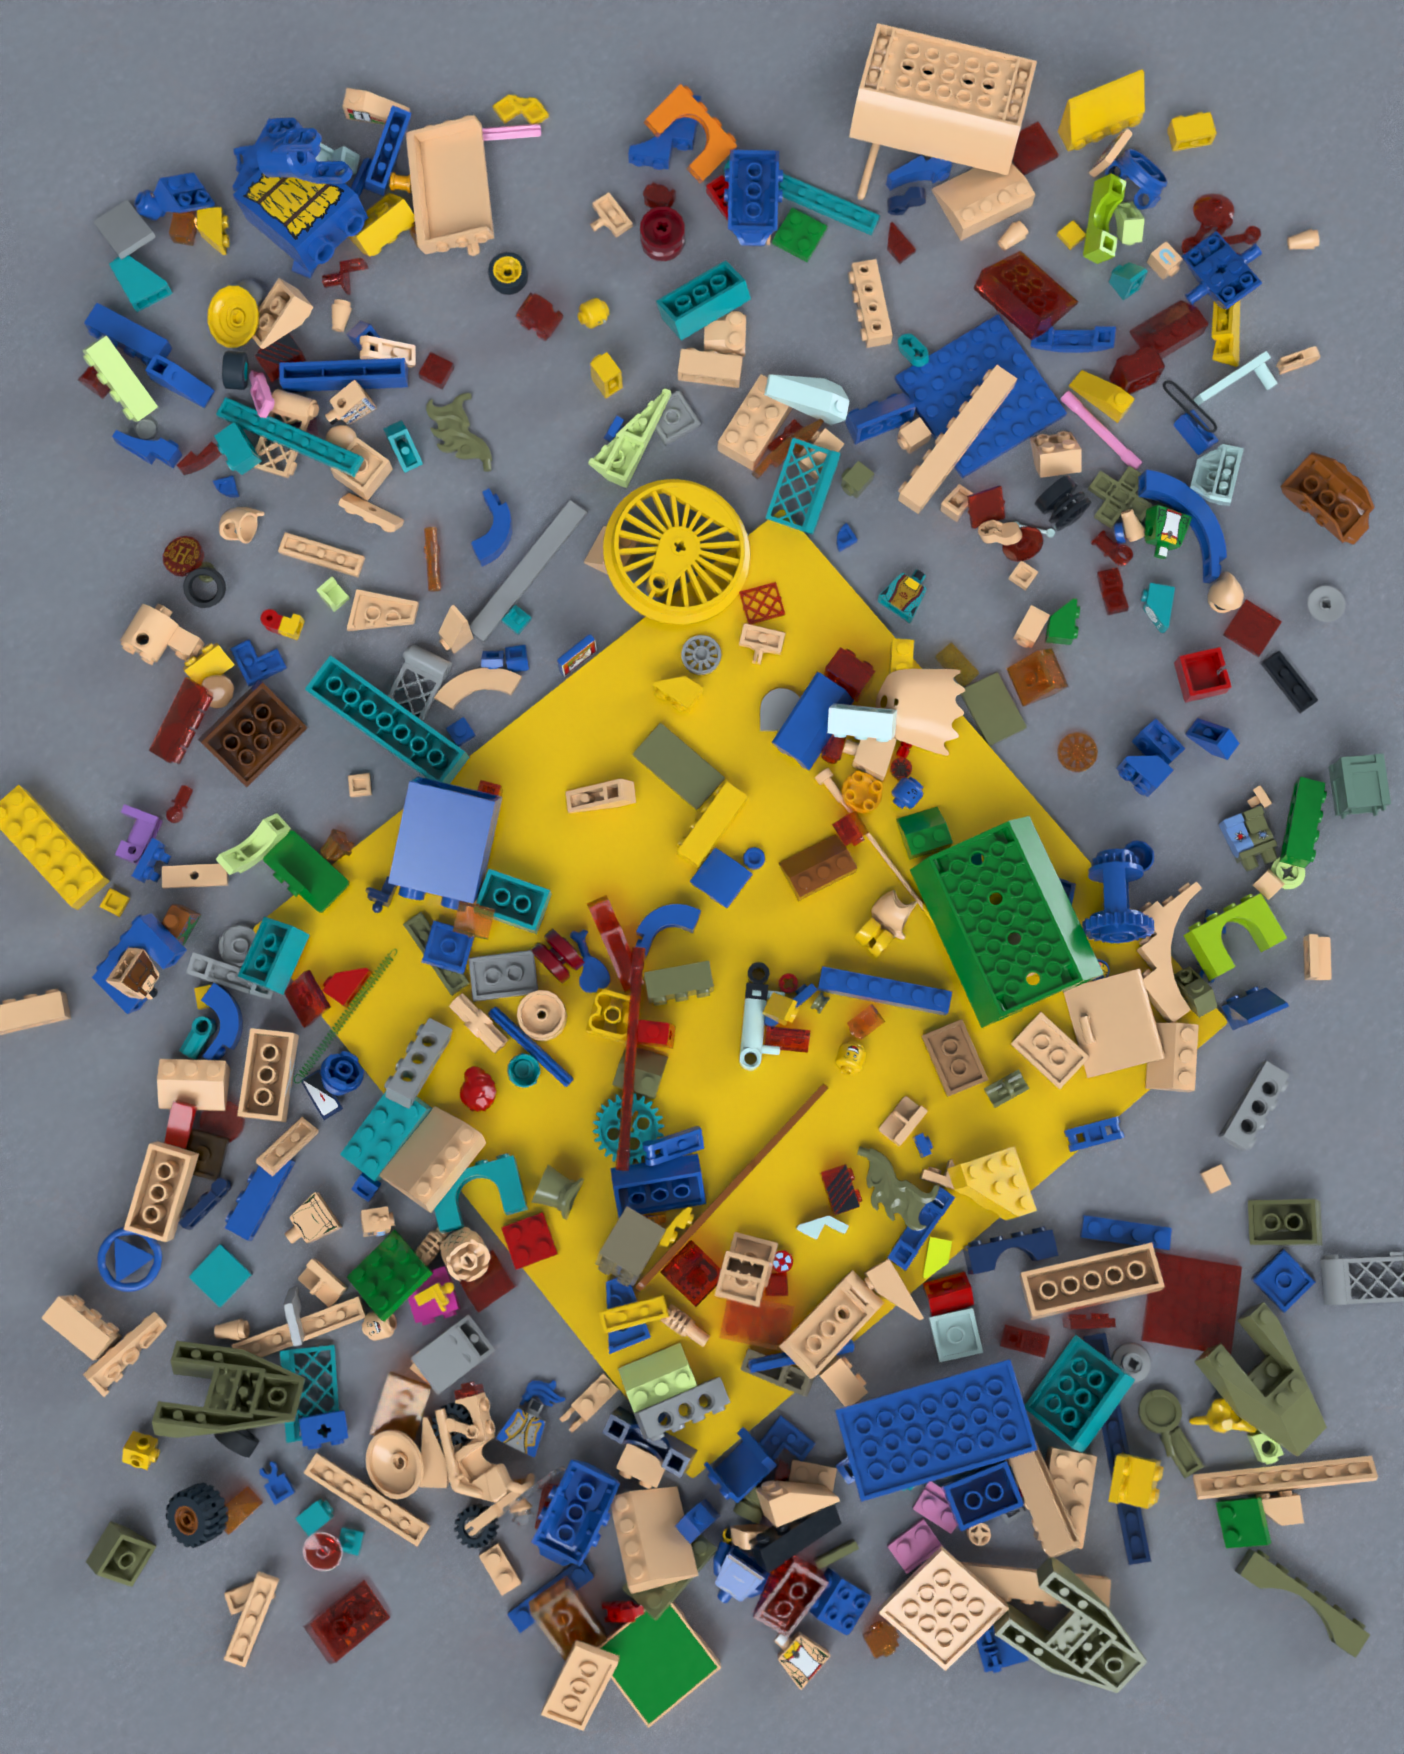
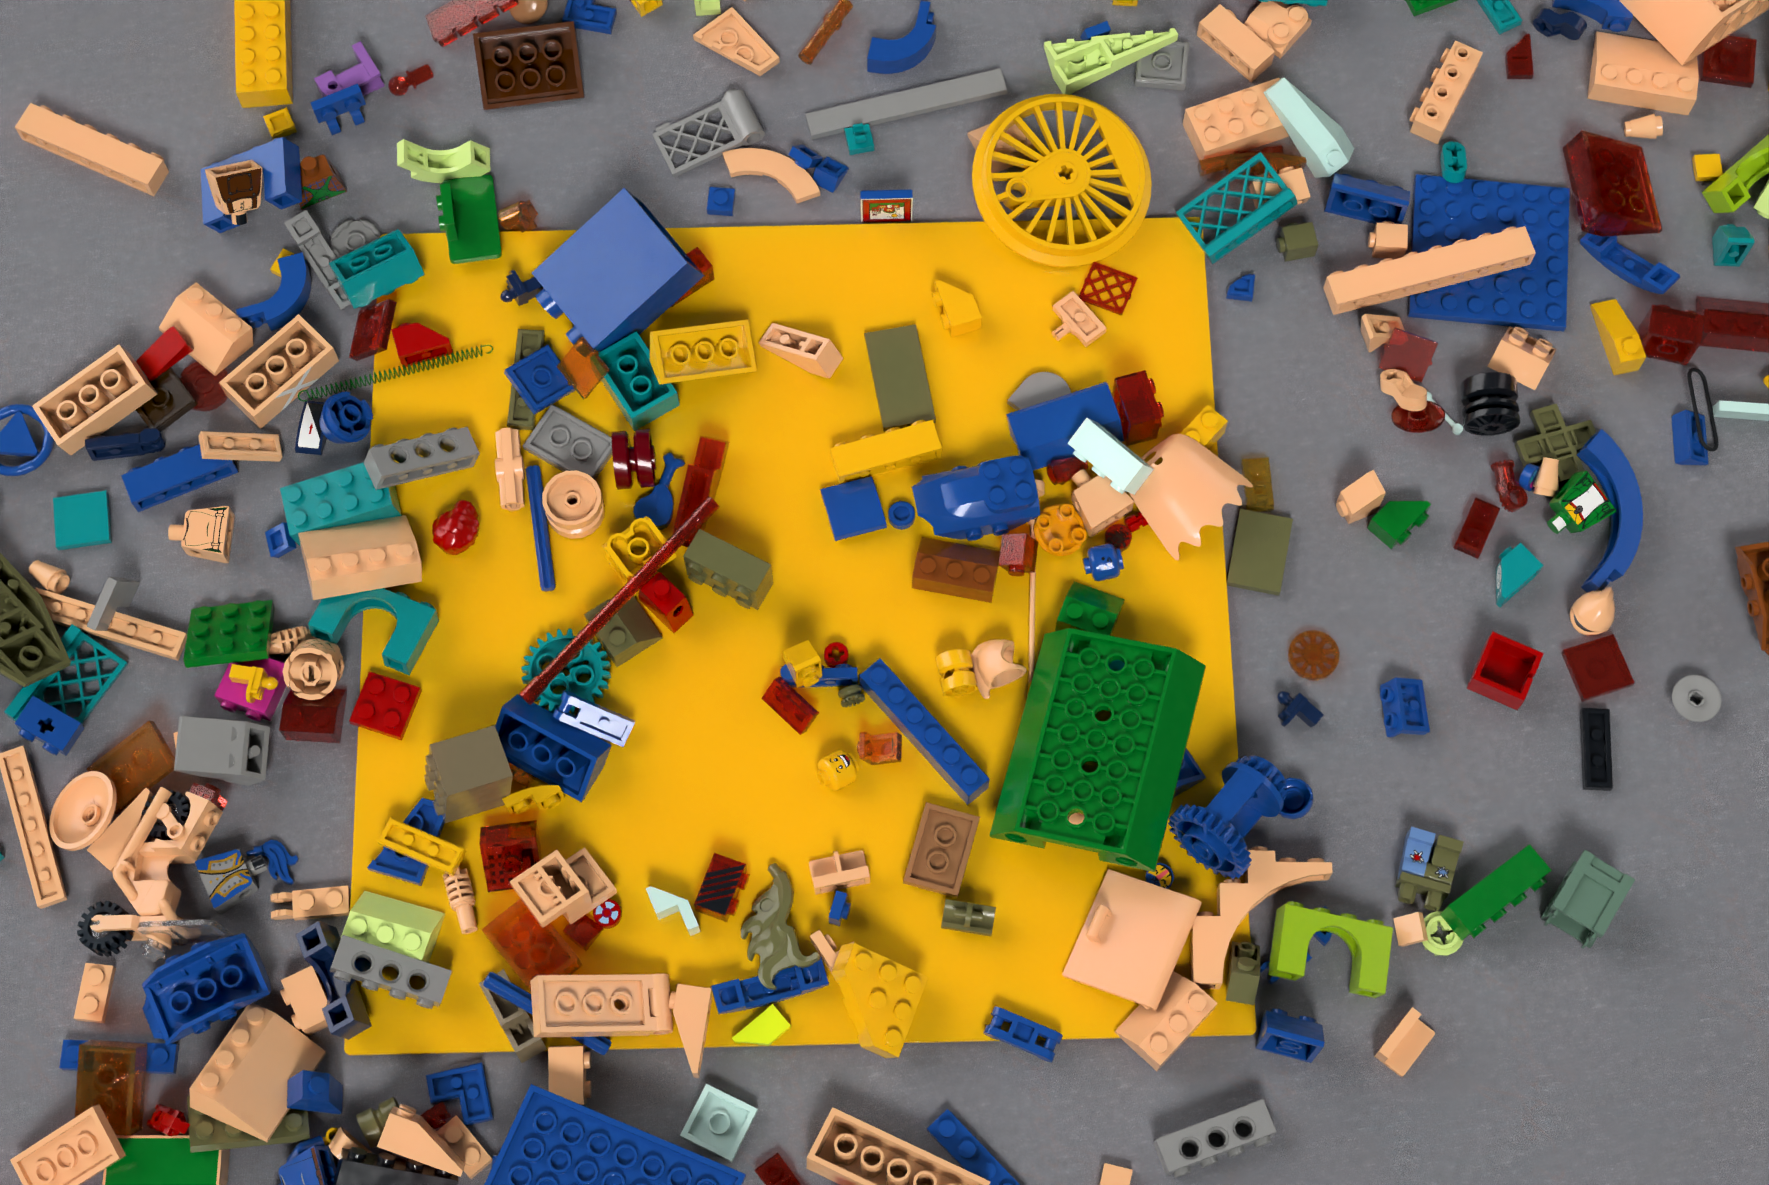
camera: 40 degrees right, 10 degrees down
(182, 876) = (359, 144): light nougat tile -> none
(196, 1038) = (248, 293): teal piece -> none
(322, 1282) = (166, 597): light nougat panel -> none
(360, 785) = (587, 181): light nougat tile -> none
(376, 1221) = (260, 576): light nougat head -> none
(376, 1328) = (179, 677): light nougat head -> none
(386, 722) = (657, 139): teal brick -> none
(454, 631) = (789, 103): light nougat slope -> none
(523, 1070) = (513, 542): teal hair -> none
(542, 850) = (702, 352): none -> yellow slope
(557, 1191) = (448, 674): olive hat -> none
(668, 916) = (762, 503): blue arch -> none
(701, 655) = (1008, 292): light grey wheel -> none
(731, 1187) = (611, 804): dark orange piece -> none
(742, 1468) = (399, 1081): blue panel -> none
(753, 1019) = (769, 664): light aqua piece -> none
(797, 810) = (979, 498): none -> blue slope
(904, 595) = (1257, 380): torso -> none
(948, 1293) = (745, 1078): red panel -> none
(983, 1257) = (874, 1097): dark blue arch -> none
(1023, 575) = (1394, 447): light nougat plate -> none
(1037, 677) = (1330, 552): clear orange slope -> none
(1050, 1050) = (1044, 916): light nougat plate -> none
(1077, 407) = (1596, 407): bright pink piece -> none
(1093, 795) = (1298, 706): none -> dark blue piece
(1144, 772) = (1366, 719): blue slope -> none
(1213, 738) = (1467, 743): blue slope -> none
(1217, 474) = (1678, 491): light aqua wedge -> none
(1261, 797) = (1472, 836): light nougat tile -> none

